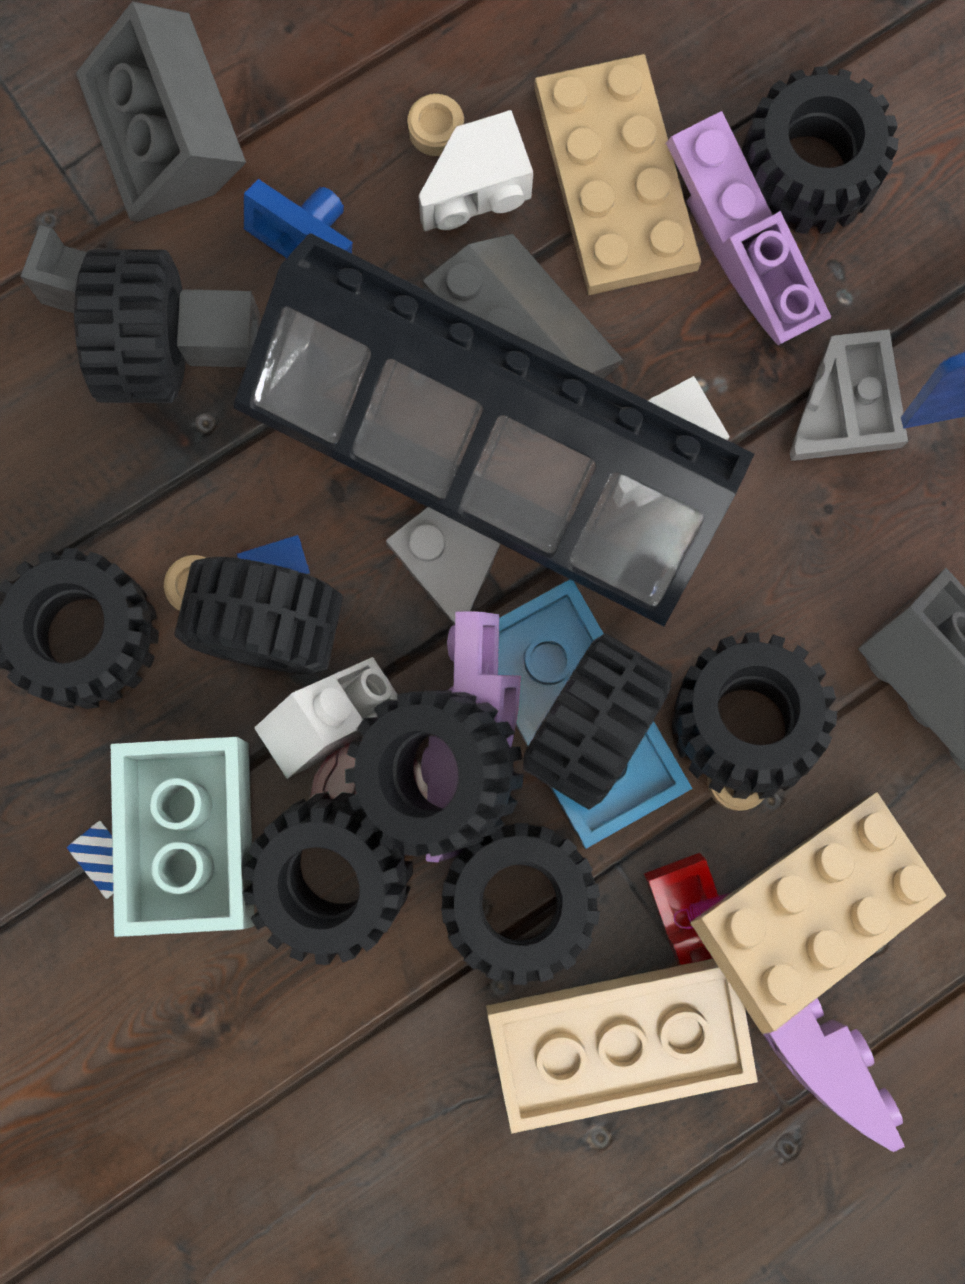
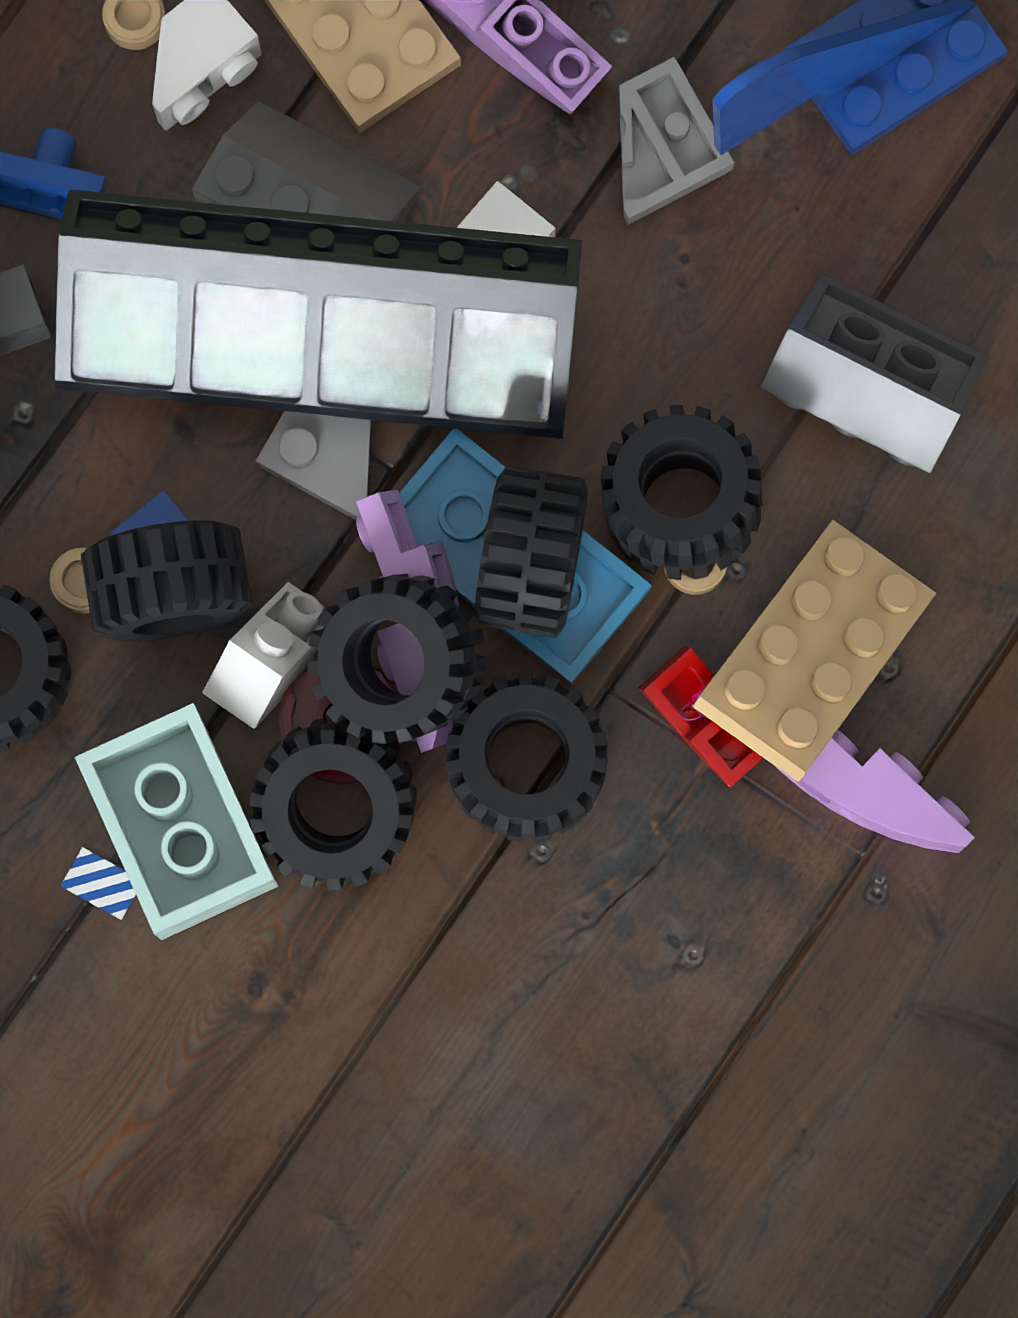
camera: 20 degrees left, 0 degrees up
(620, 1045) = (675, 853): tan plate -> none

